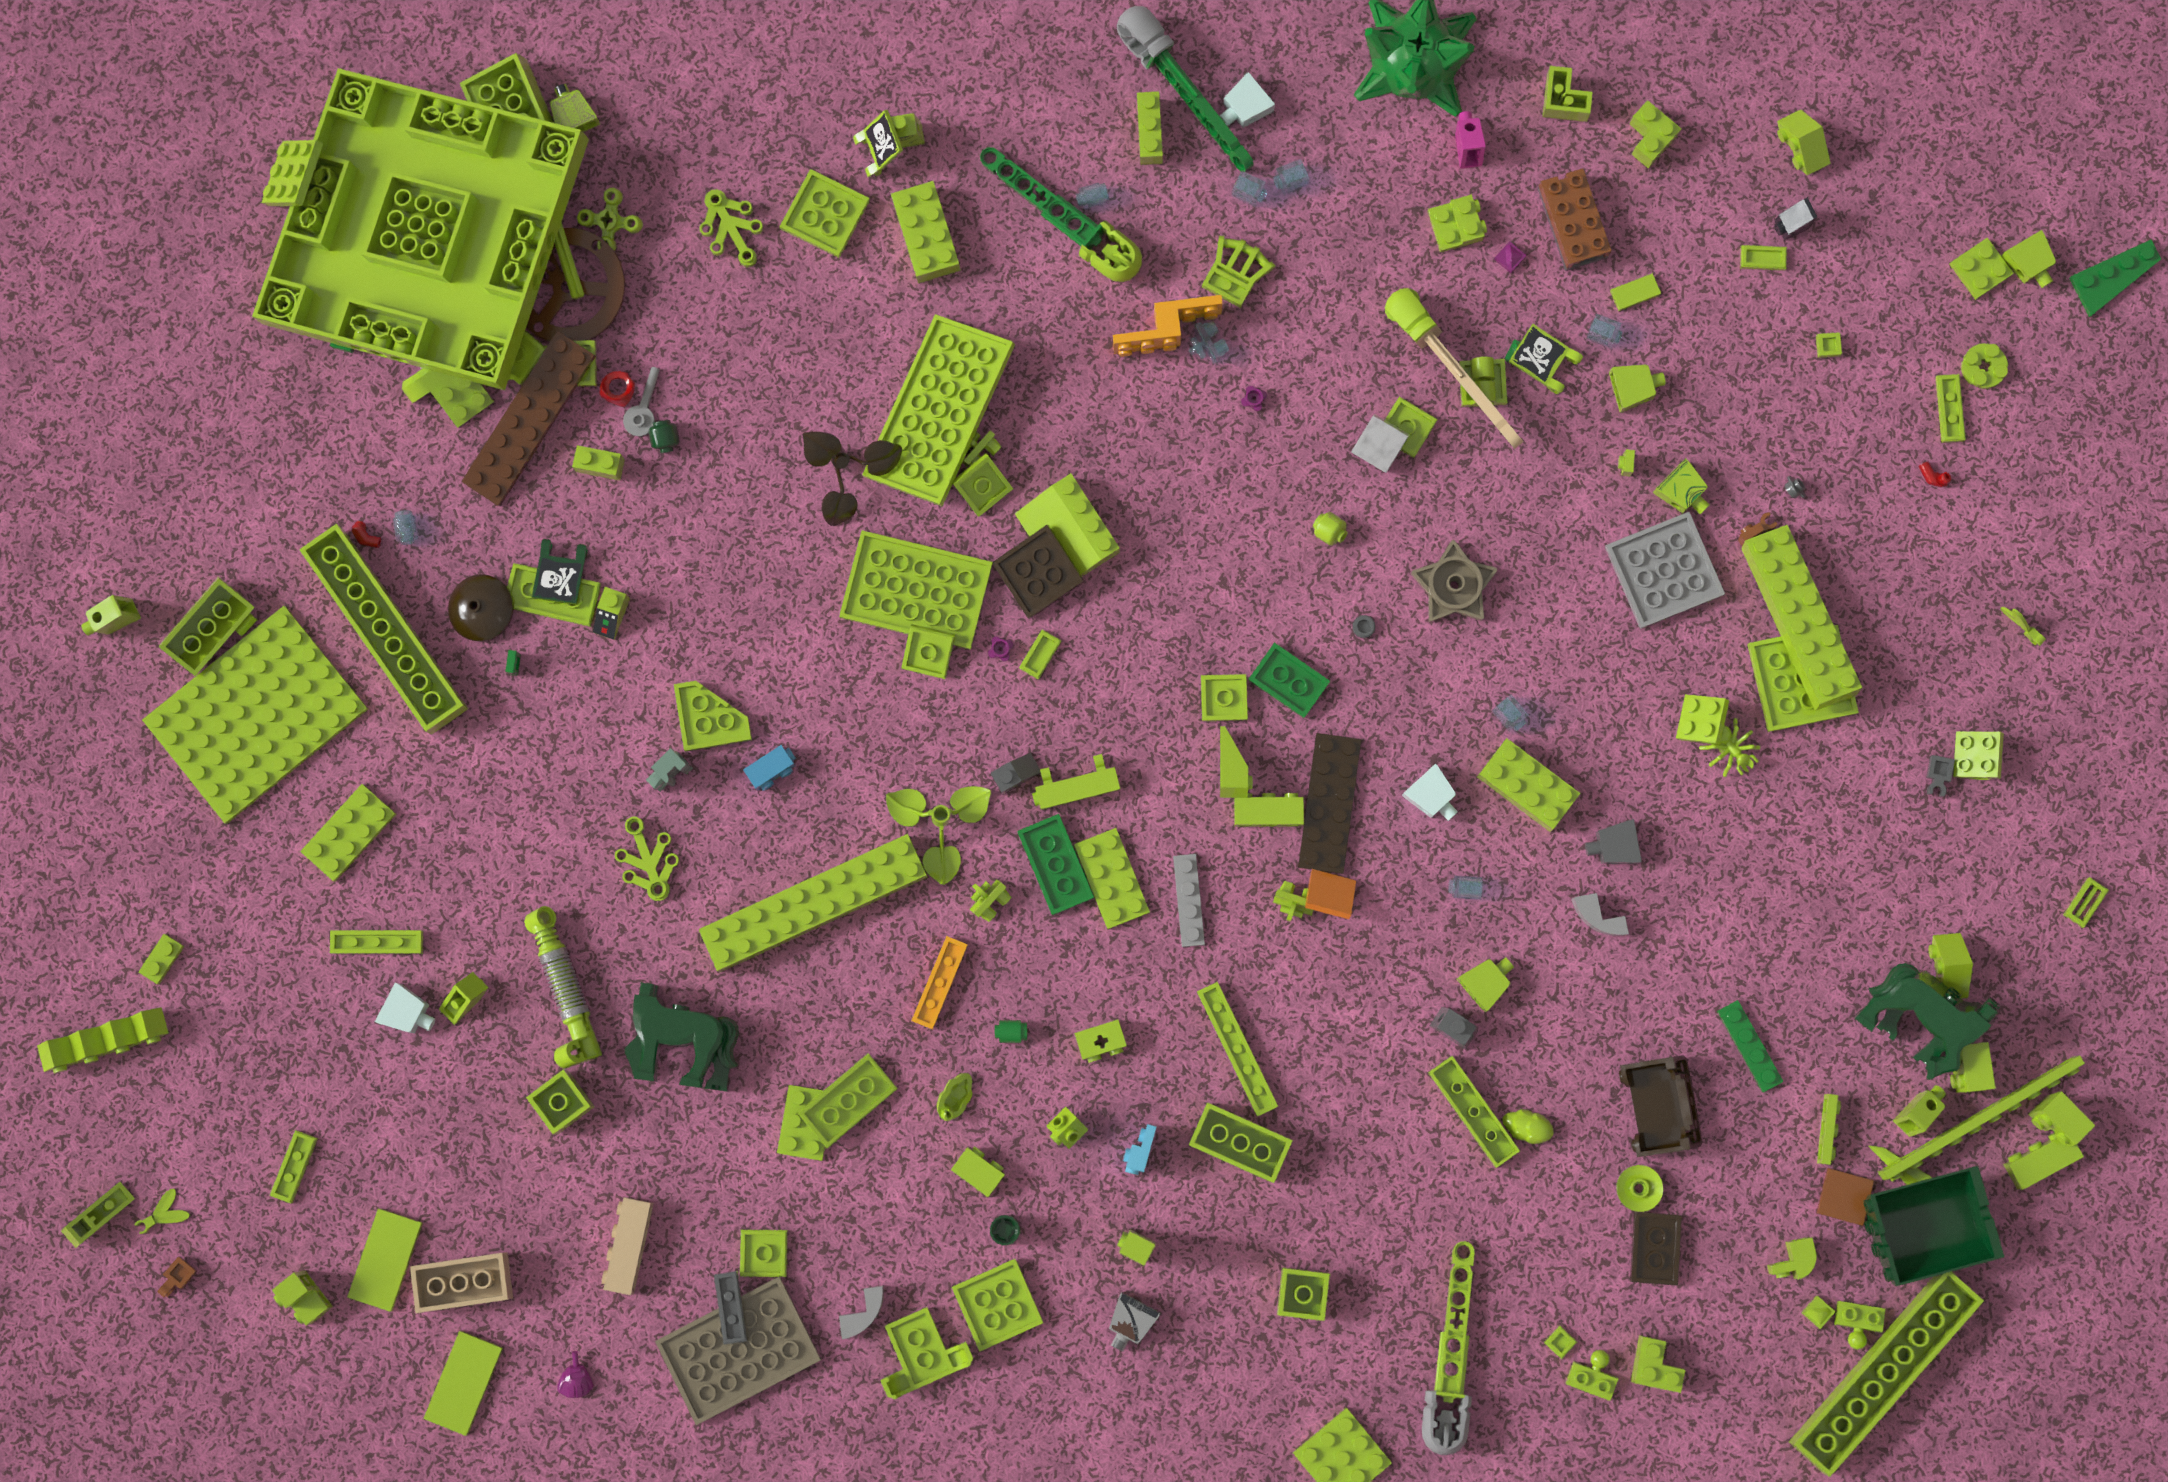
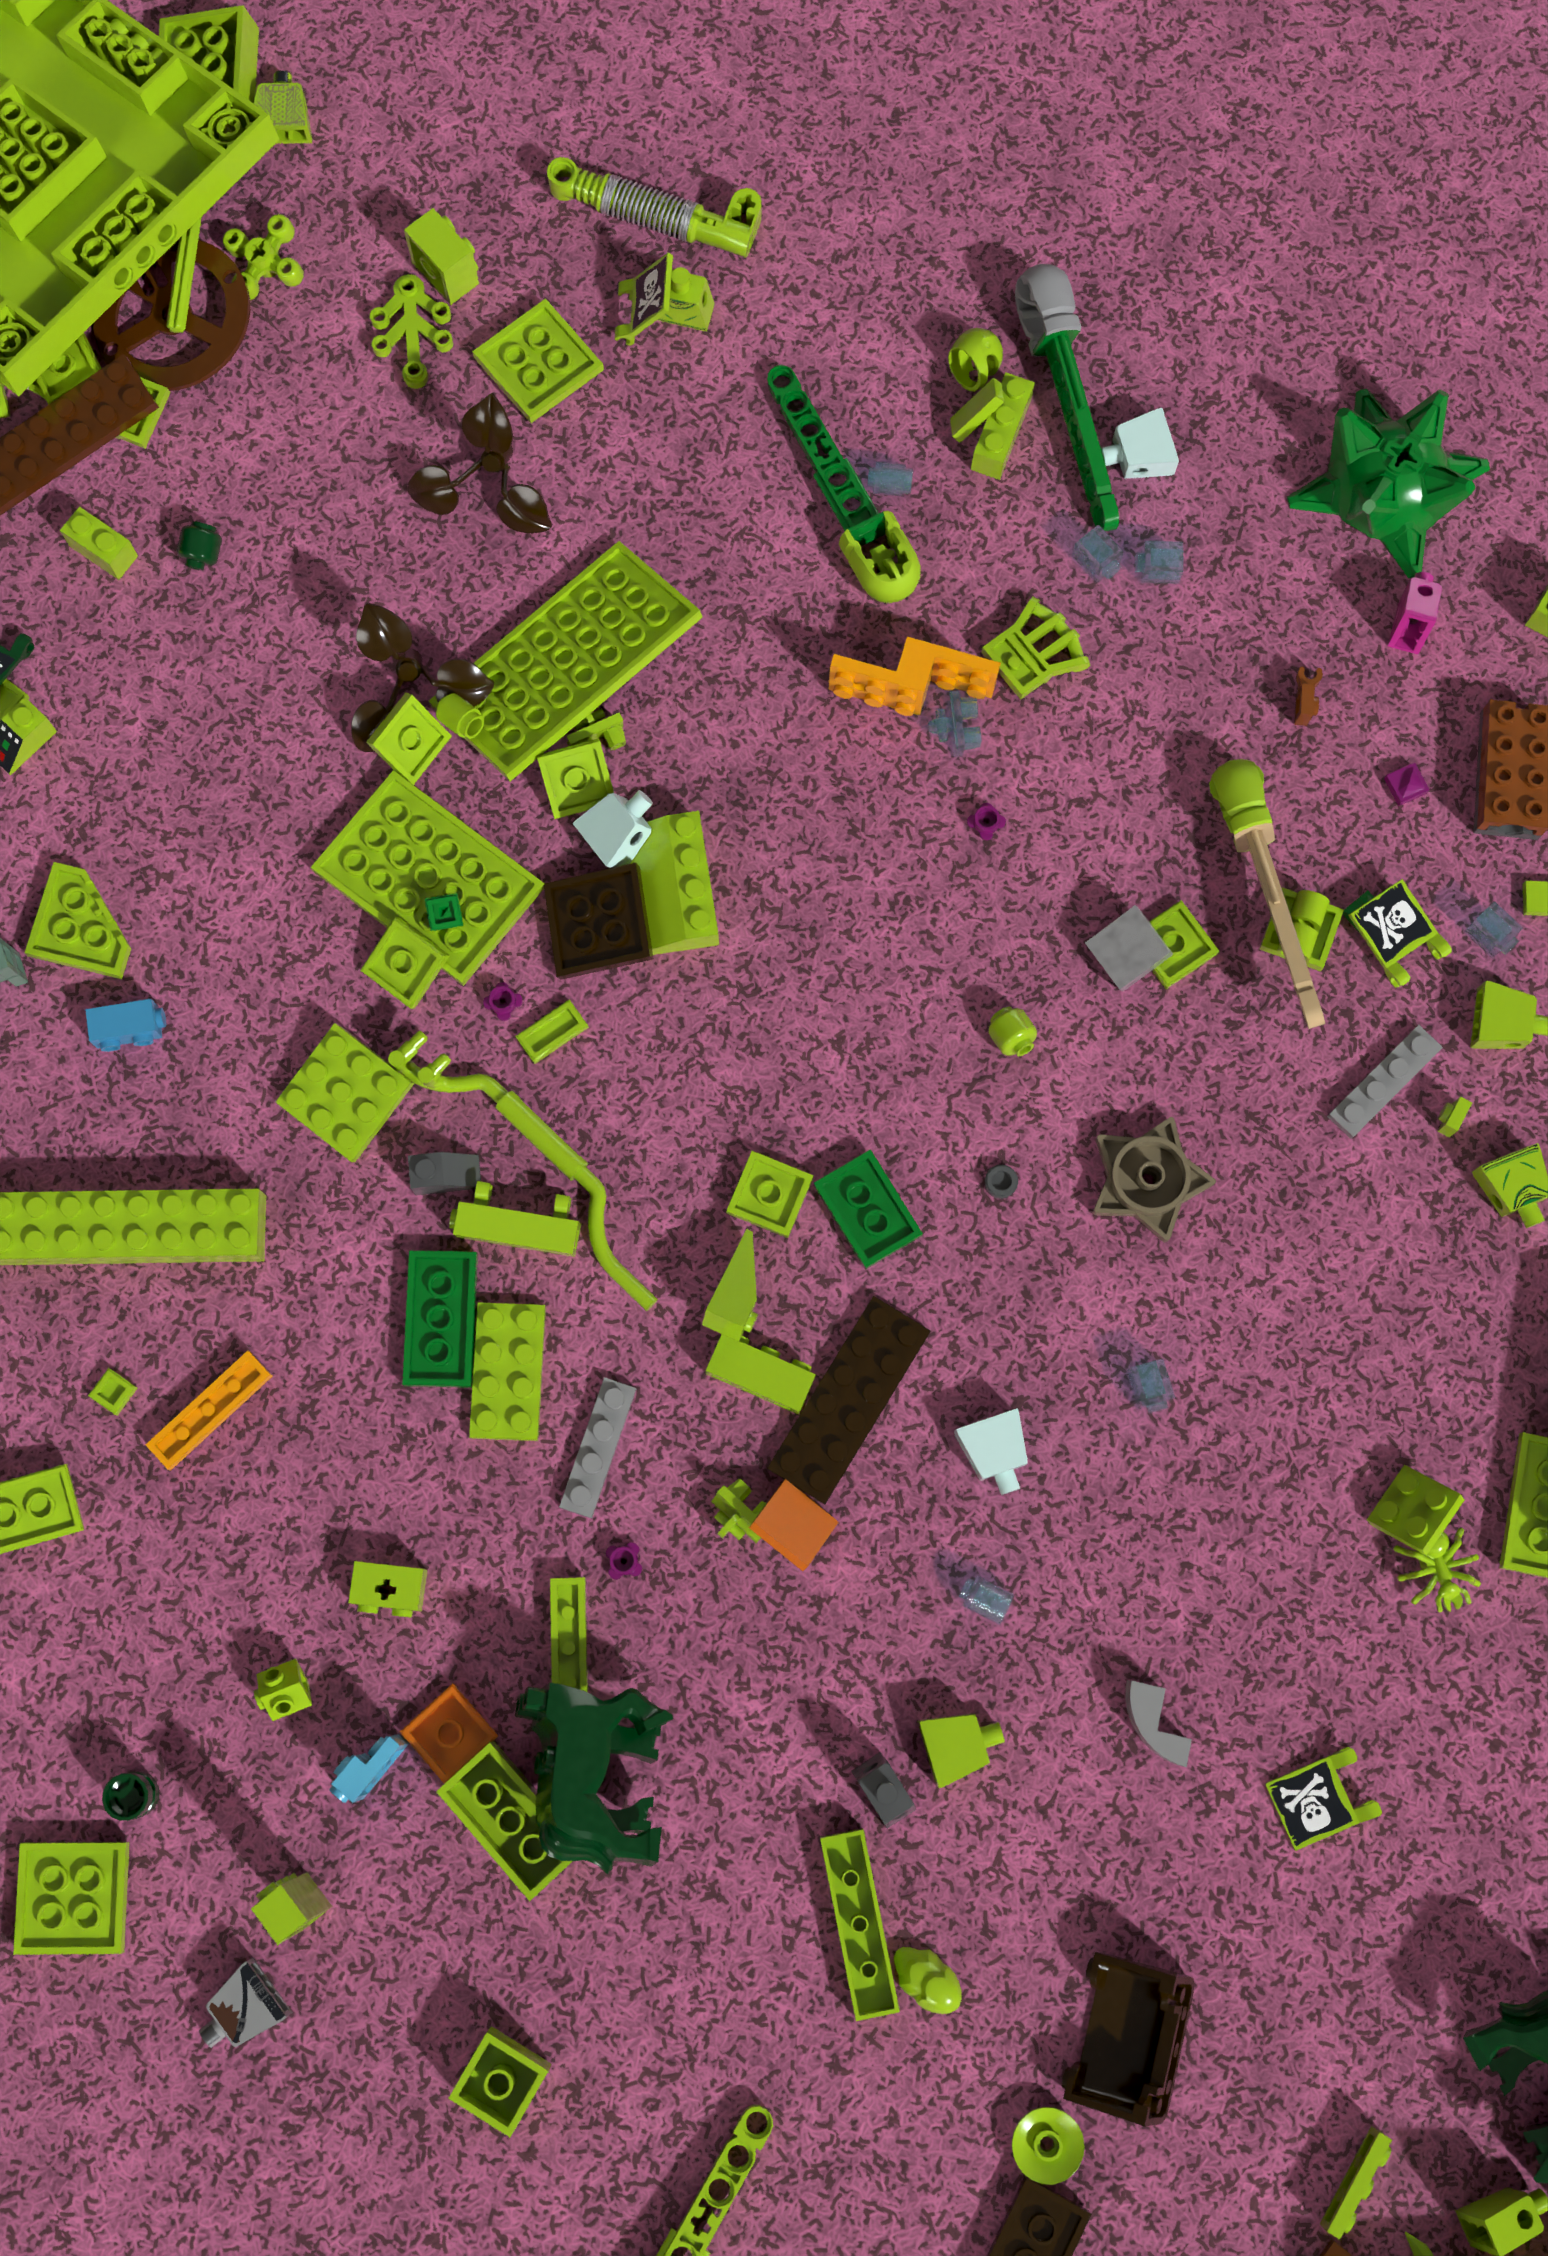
camera: 15 degrees right, 5 degrees down
(619, 400) = (168, 478): red piece -> none
(639, 418) = (181, 510): light grey piece -> none
(730, 170) = (442, 255): none -> lime brick
(826, 282) = (486, 427): none -> dark brown plant
(856, 75) = (656, 211): none -> lime piece
(863, 505) = (409, 738): none -> lime plate
(873, 998) = (112, 1391): none -> lime tile
(891, 478) = (459, 716): none -> lime brick
(925, 232) = (654, 434): lime brick -> none
(929, 750) = (344, 1092): none -> lime plate
(939, 608) = (444, 911): none -> green tile
(955, 1097) = (153, 1577): lime arm -> none
(968, 802) = (284, 1153): lime plant -> none
(978, 1171) = (135, 1695): lime brick -> none
(985, 899) = (314, 1333): lime hips -> none
(1011, 1031) = (273, 1520): green brick -> none
(1023, 507) = (616, 827): none -> light aqua torso
(1066, 724) = (540, 1136): none -> lime piece
(1111, 82) = (982, 348): none -> lime helmet
(1129, 126) = (977, 410): none -> lime tile
(1177, 1110) = (448, 1733): none -> orange tile
(1236, 955) = (631, 1567): none -> magenta plate
(1264, 1093) = (576, 1748): none -> dark green piece
(1424, 231) = (1306, 703): none -> dark orange plate
(1457, 223) = (1355, 711): lime plate -> none
(1528, 785) = (1134, 1495): lime brick -> none
(1575, 458) = (1385, 1081): none -> light grey plate
(1616, 844) = (1221, 1632): dark grey torso -> none
(1664, 570) = (1445, 1283): light grey plate -> none
(1714, 921) = (1315, 1802): none -> flag
(1750, 1046) = (1292, 2007): green plate -> none

